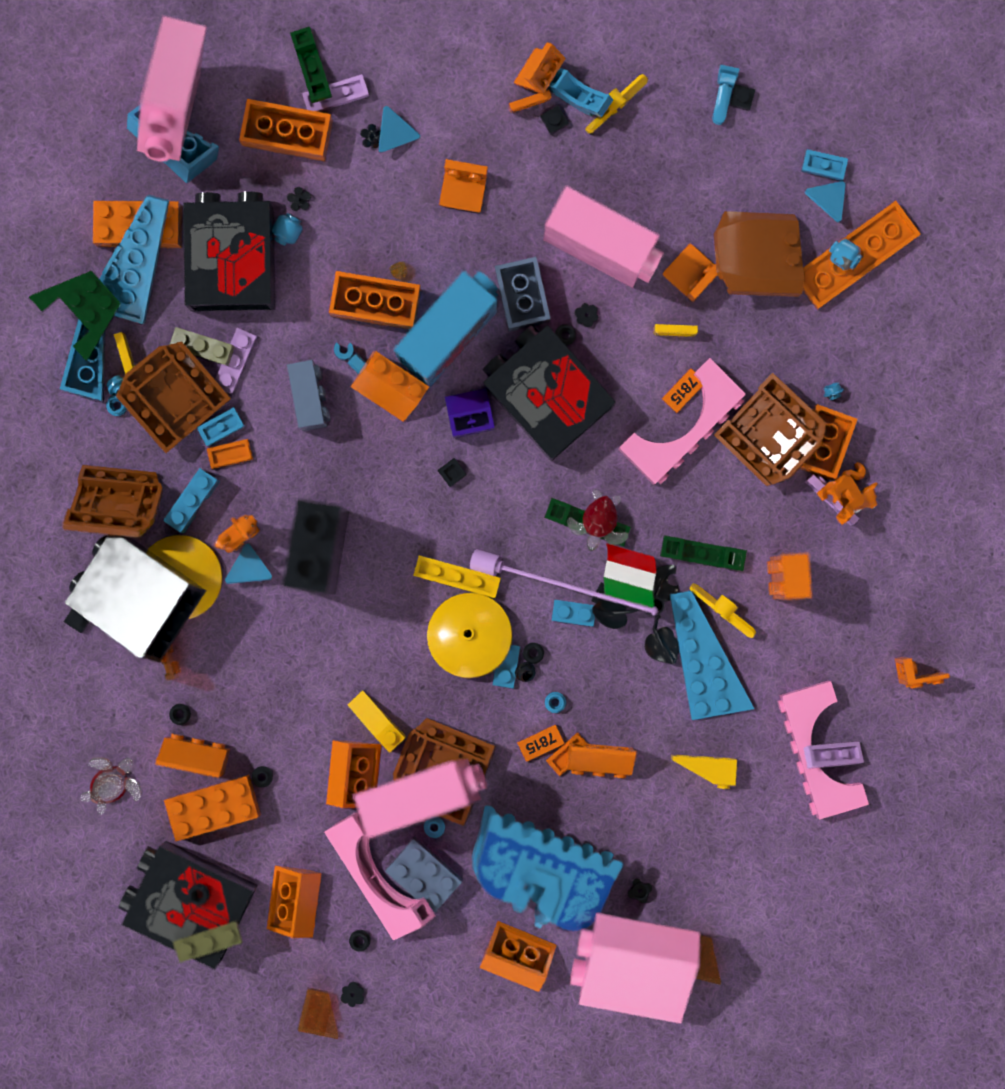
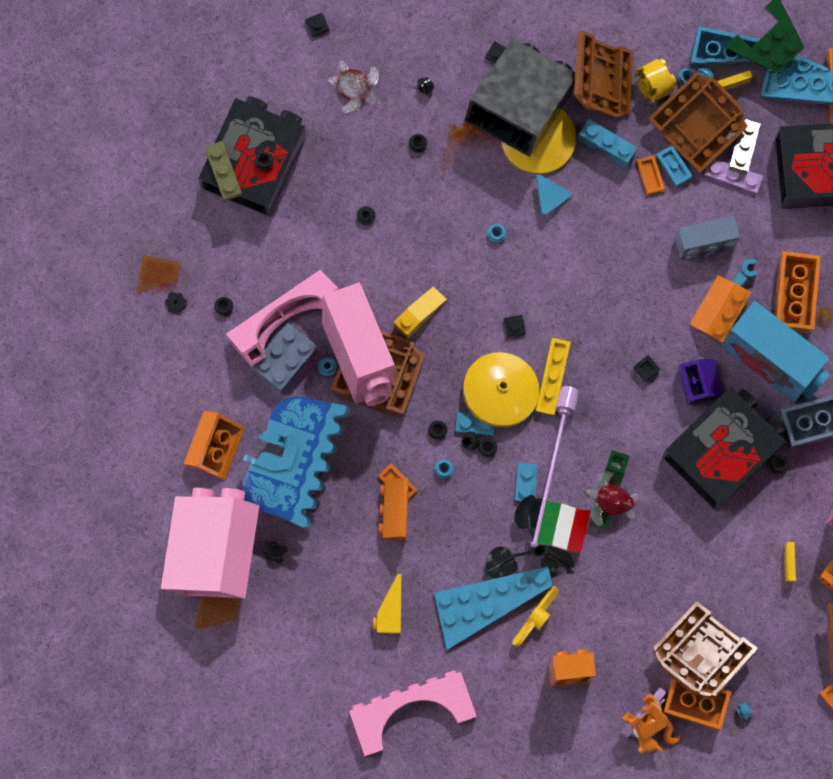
camera: 85 degrees right, 10 degrees down
(33, 823) = (317, 24): none -> black plate
(113, 703) = (425, 85): none -> black plate
(120, 441) = (655, 80): none -> yellow brick
(193, 755) = (383, 155): orange slope -> none
(212, 807) = (337, 173): orange brick -> none
(235, 536) = (578, 181): orange animal -> none
(282, 630) = (496, 227): none -> dark azure plate
(293, 902) = (256, 247): orange slope -> none
(316, 547) = (574, 246): black brick -> none
(352, 771) = (380, 289): orange slope -> none
(396, 616) = (514, 325): none -> black plate
(511, 714) = (440, 424): none -> black plate
(540, 743) = (406, 458): orange tile -> none
(590, 310) = (803, 481): black plant -> none
(682, 391) = (735, 573): orange tile -> none
(703, 553) = (587, 595): dark green slope -> none
(718, 398) = (728, 604): bright pink arch -> none
(833, 755) = (408, 721): lavender plate -> none

